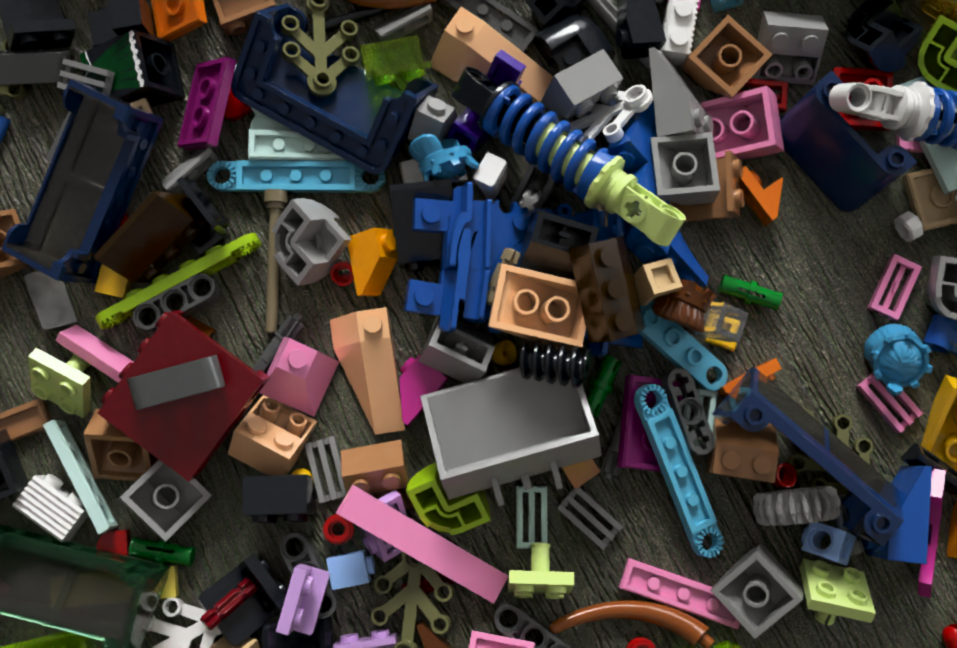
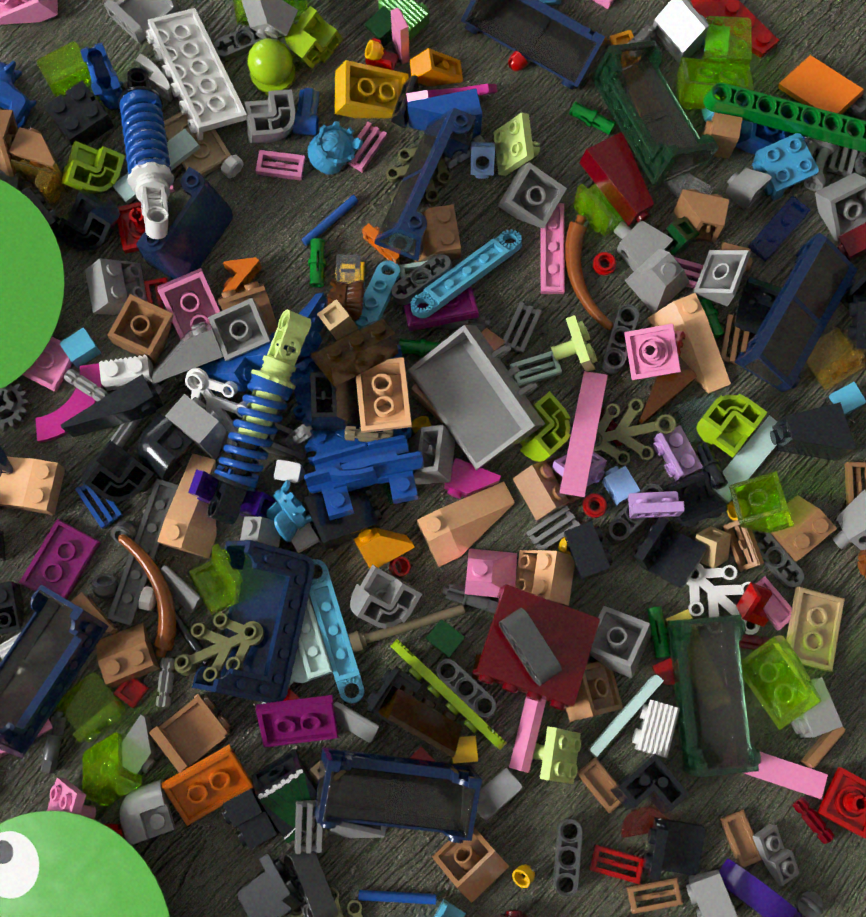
camera: 110 degrees left, 5 degrees down
(228, 604) = (677, 561): dark red axle -> none
(239, 297) = (445, 638): none -> dark green panel
(554, 365) = (421, 373): black piece -> none
(787, 477) = (444, 199): red hinge -> none
(796, 506) = (464, 185): light grey gear -> none
(802, 326) = (330, 220): none -> blue bar

